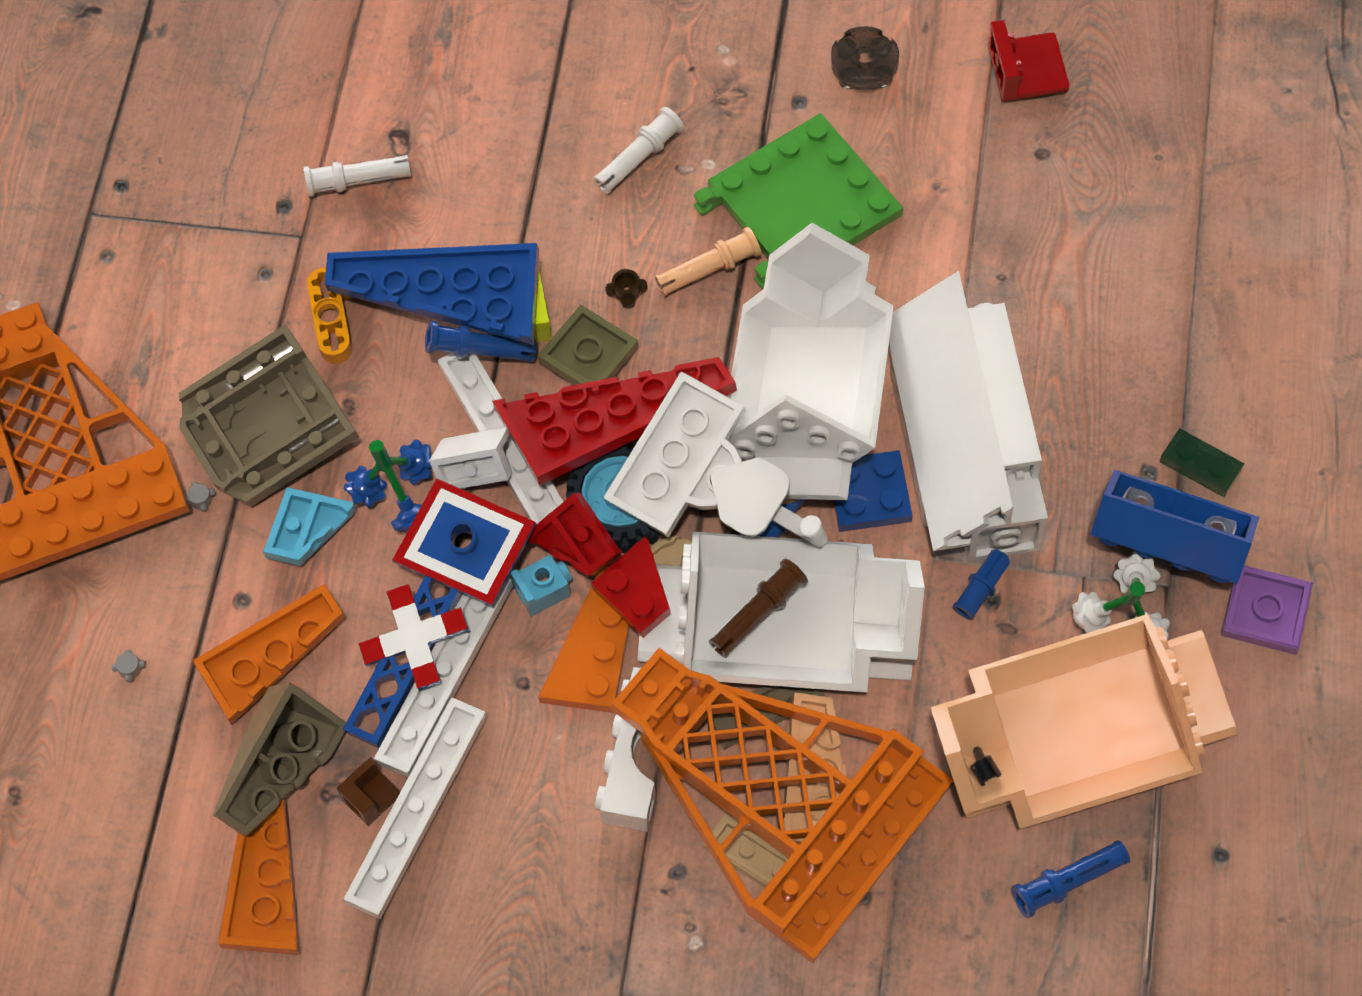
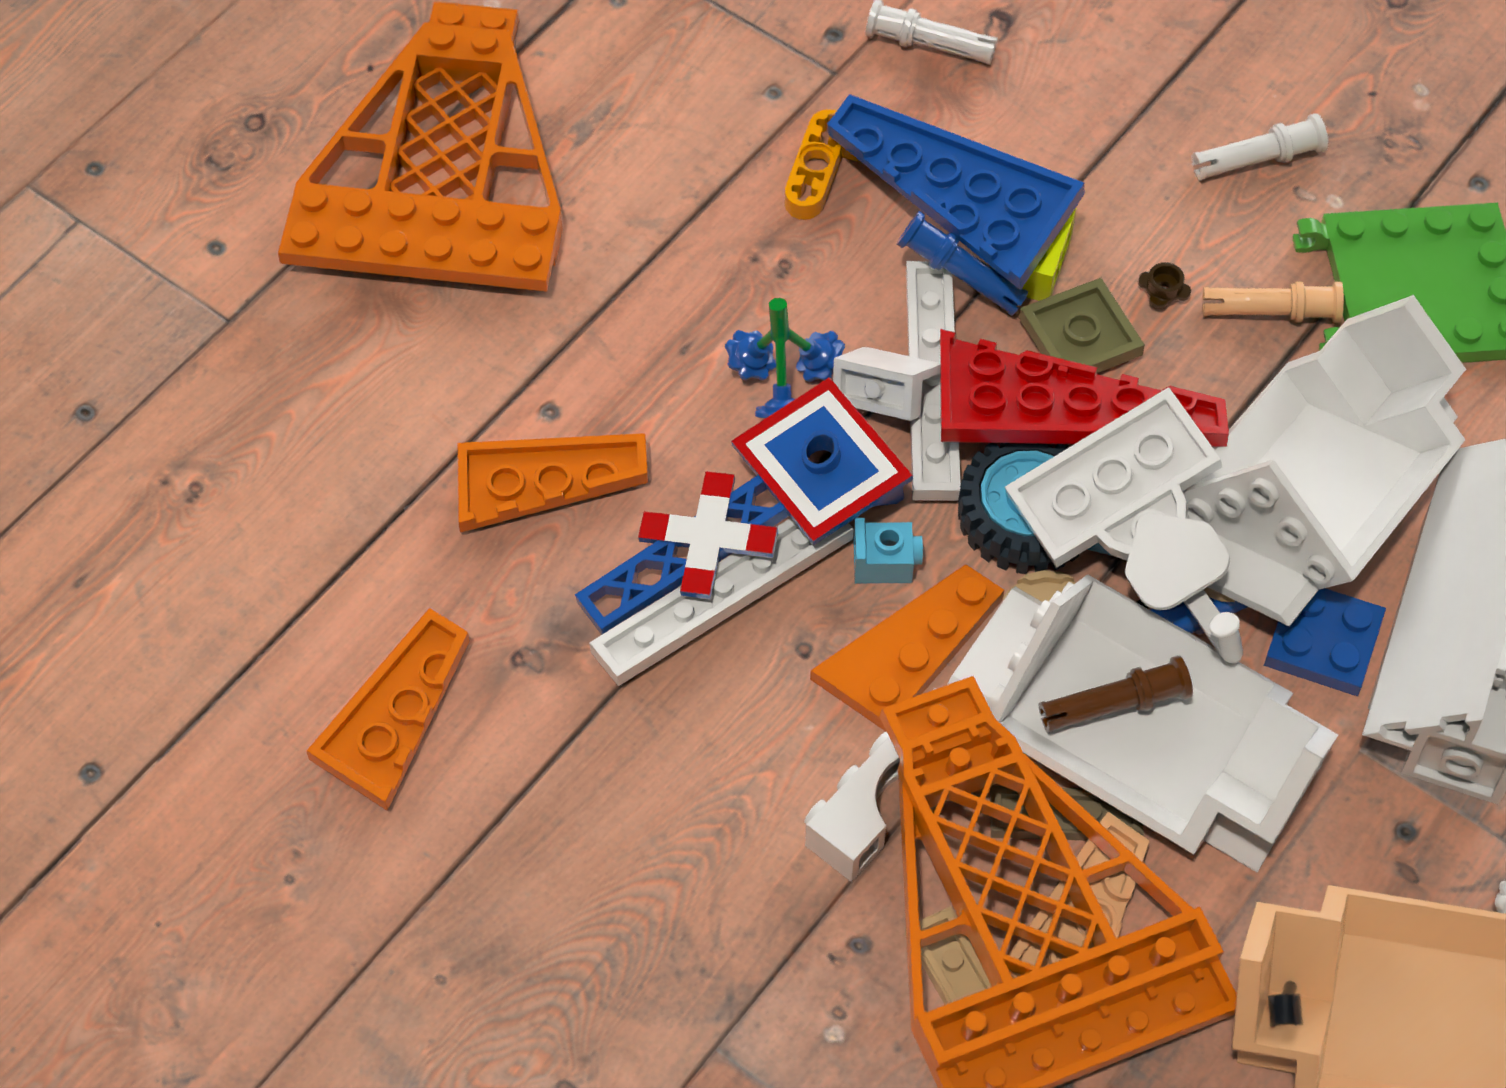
camera: 25 degrees right, 5 degrees down
(128, 665) = (389, 418): light grey piece -> none
(199, 496) = (568, 282): light grey piece -> none
(262, 419) = (681, 233): dark tan wedge -> none
(279, 750) = (490, 583): dark tan wedge -> none
(304, 525) = (661, 364): medium azure wing -> none
(368, 792) = (563, 675): reddish brown panel -> none
(415, 808) = (604, 719): white plate -> none
(576, 536) = (951, 515): red wing -> none
(635, 589) = (986, 605): red wing -> none
(981, 584) = (1402, 805): blue axle -> none

